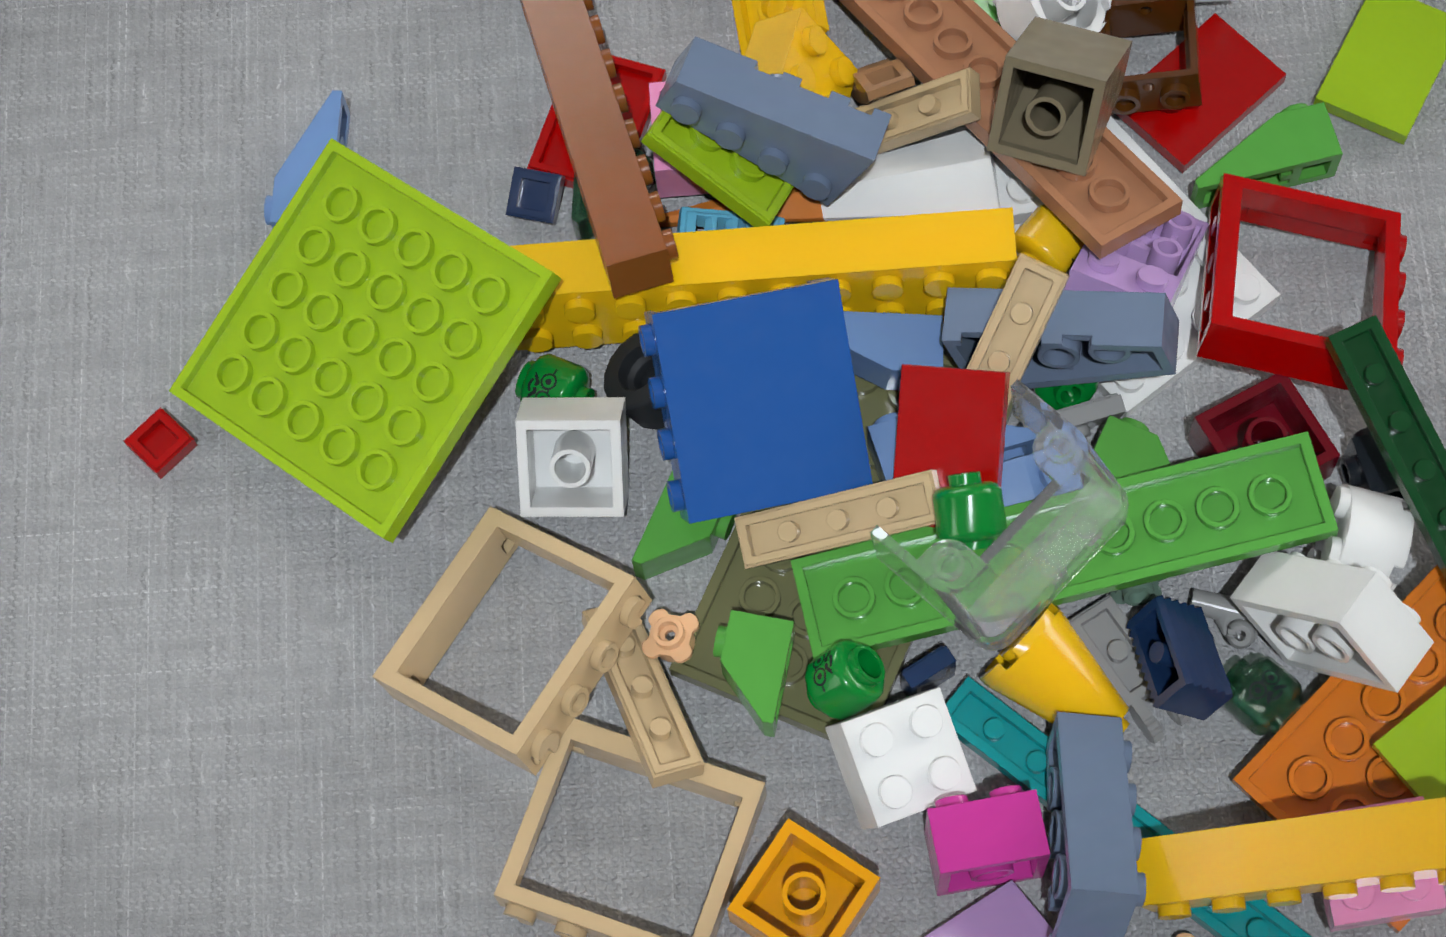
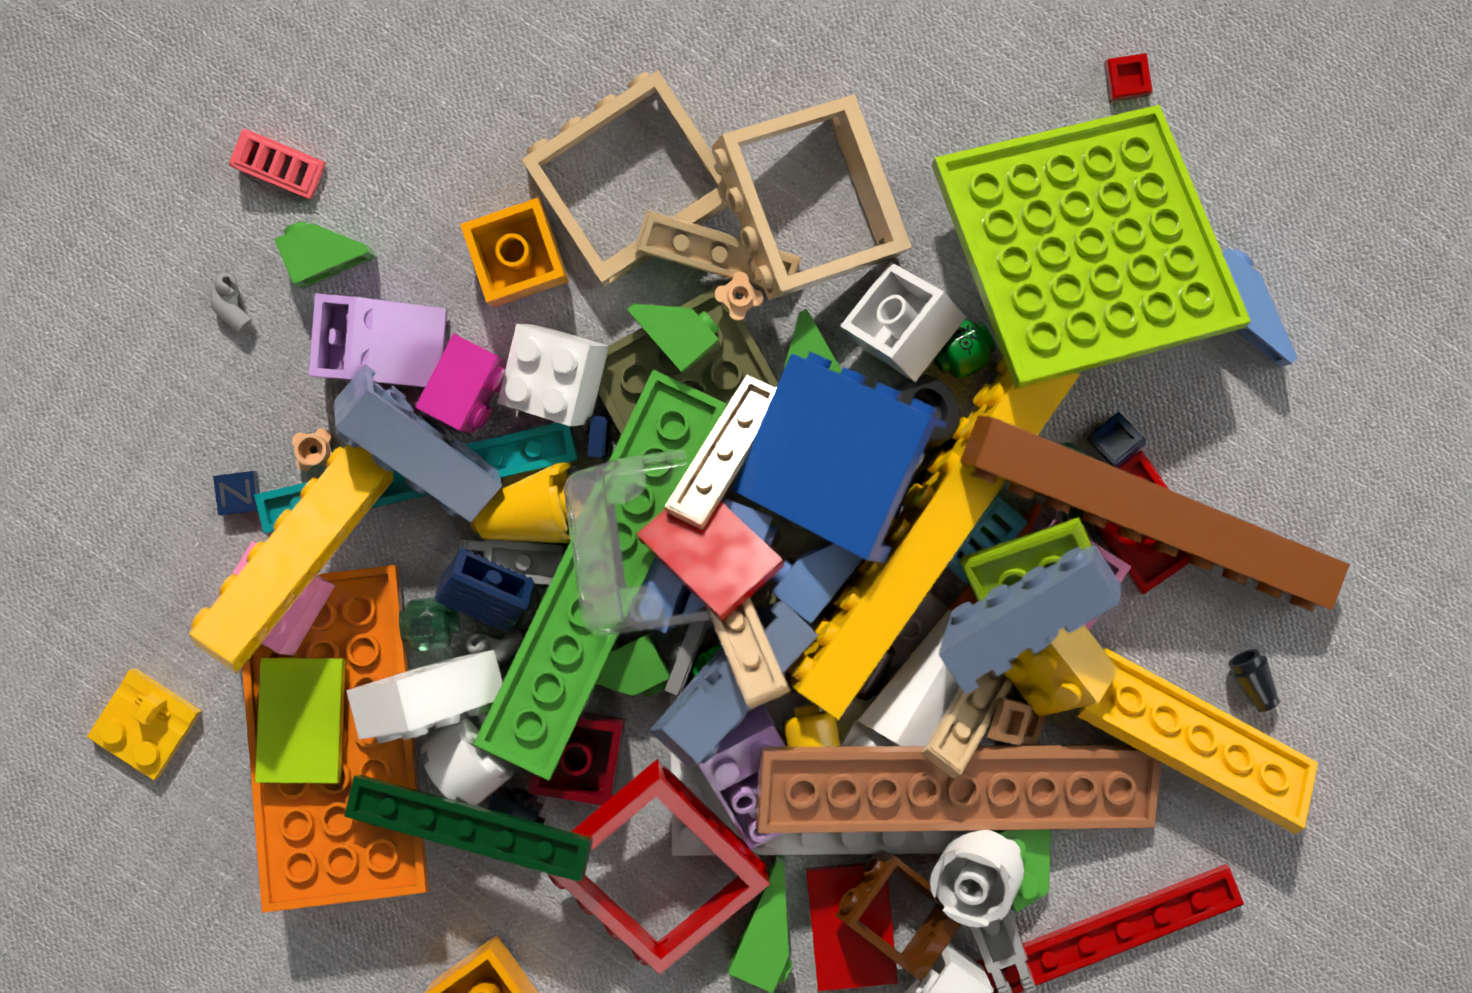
camera: 115 degrees right, 20 degrees up
(845, 679) = (623, 376): green head -> none
(969, 510) = (652, 523): green head -> none
(1057, 95) = (896, 817): dark tan slope -> none

